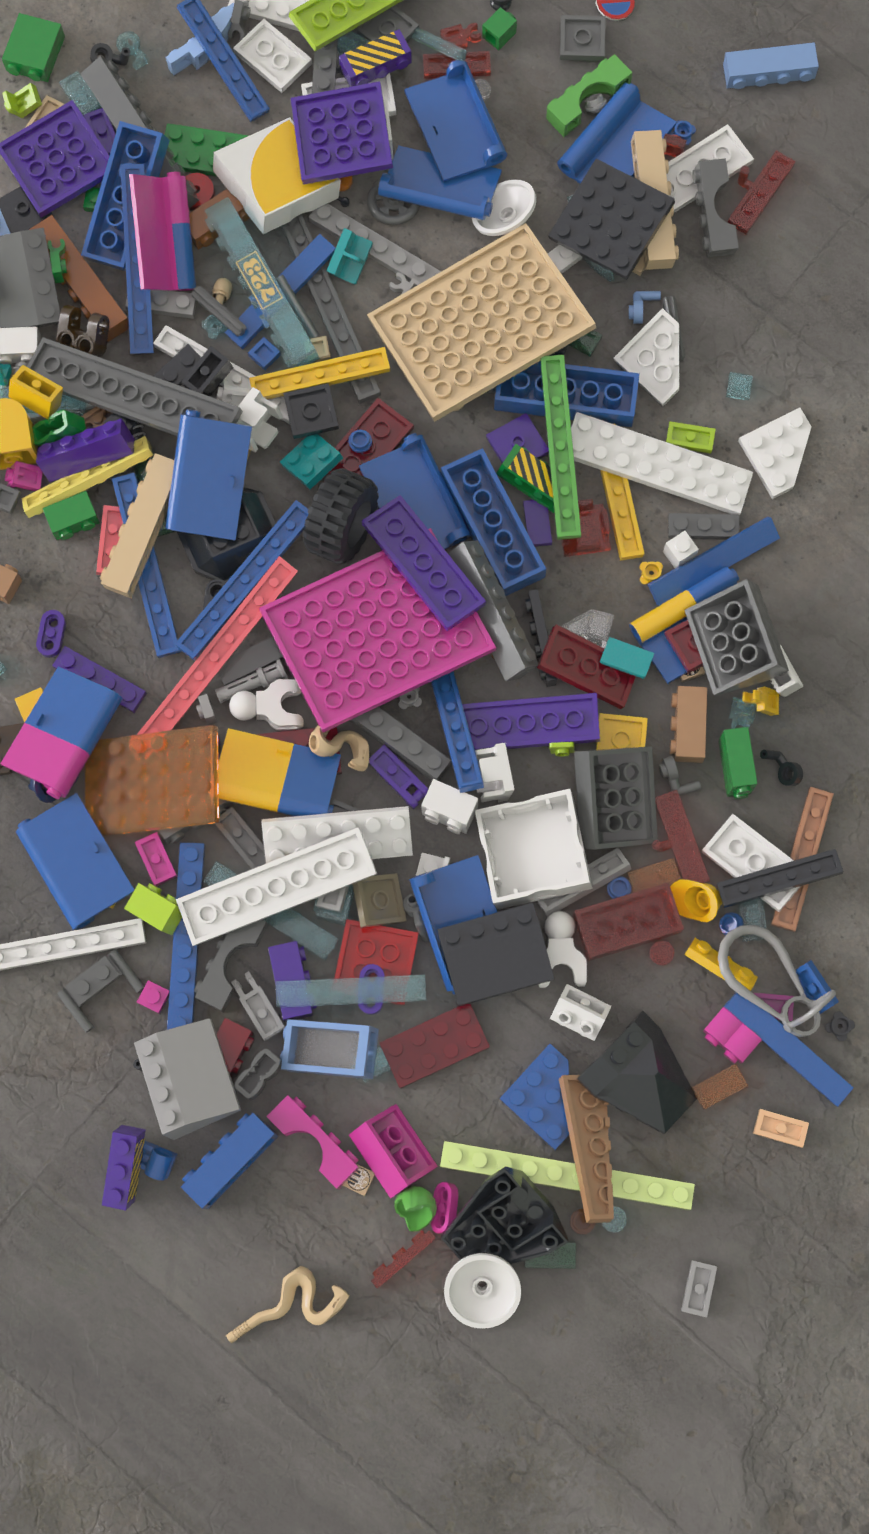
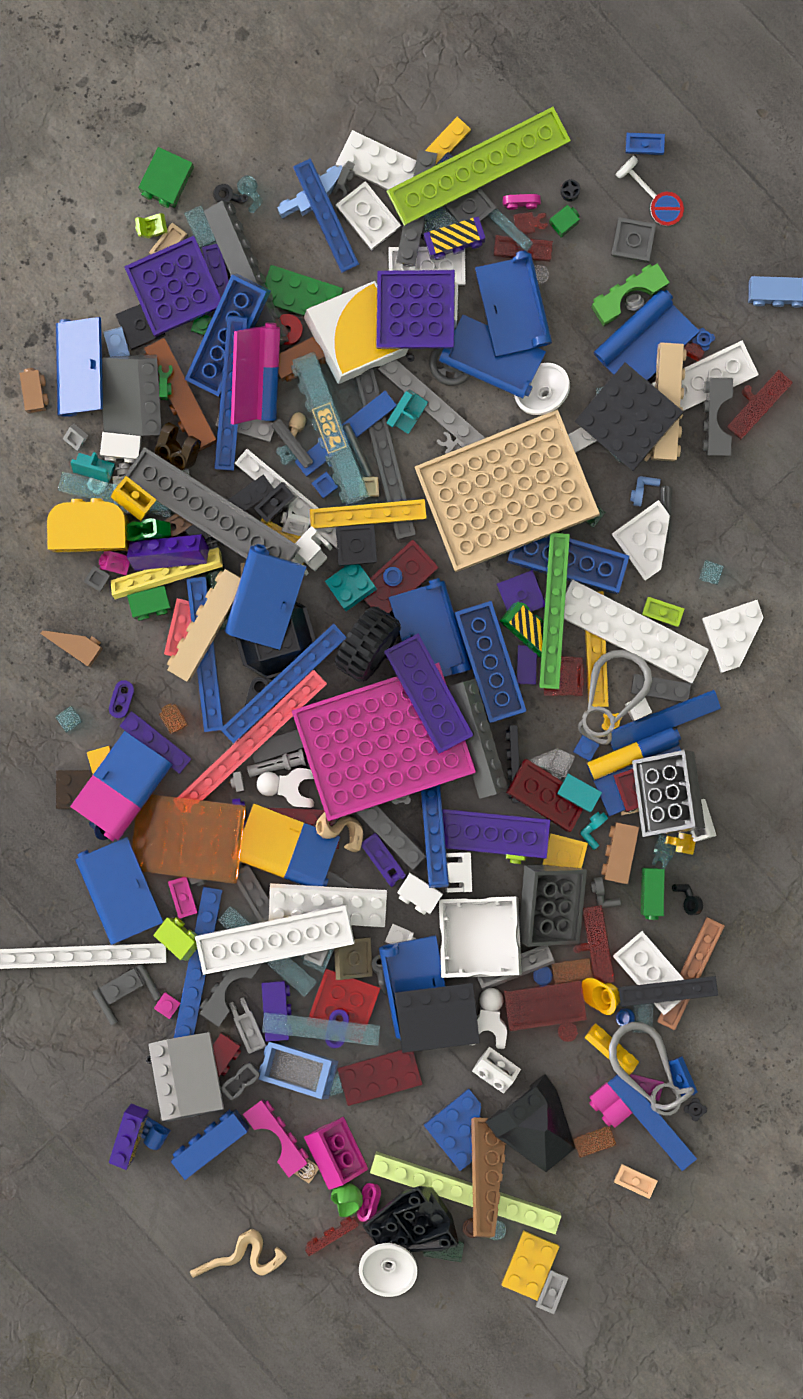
camera: 10 degrees right, 10 degrees up
(117, 646) = (173, 718): none -> clear orange brick
(446, 14) = (514, 201): none -> dark pink plate
(621, 519) = (594, 736): none -> light grey animal
(625, 608) = (586, 748): none -> blue plate
(653, 691) = (596, 820): none -> teal plate
(665, 1259) = (530, 1265): none -> yellow plate

